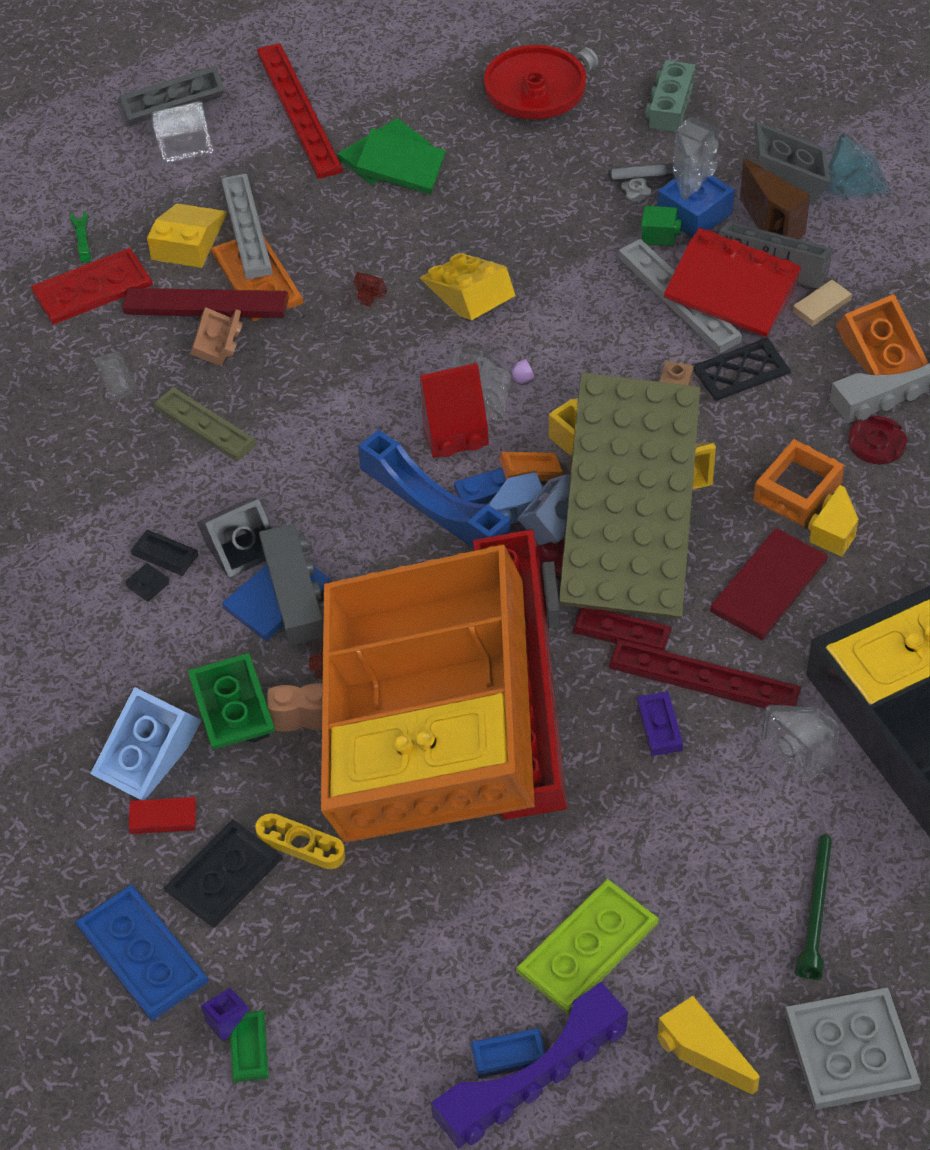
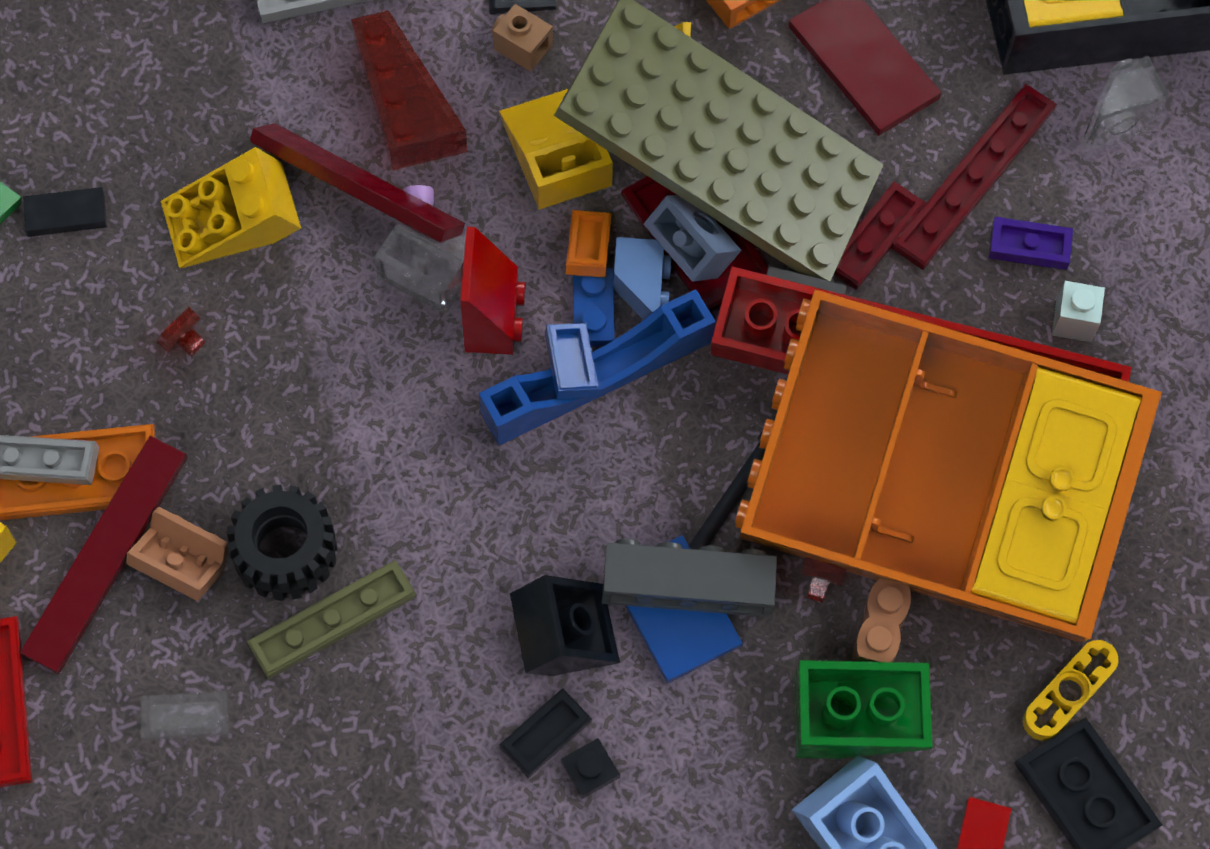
camera: 75 degrees left, 15 degrees up
(245, 392) = (289, 573): none -> black tyre
(430, 476) = (571, 361): none -> tile
(432, 213) = (64, 211): none -> black tile
(514, 333) = (357, 182): none -> dark red tile
(595, 334) = (406, 100): none -> clear red wedge
(610, 763) = (1078, 311): none -> light aqua brick

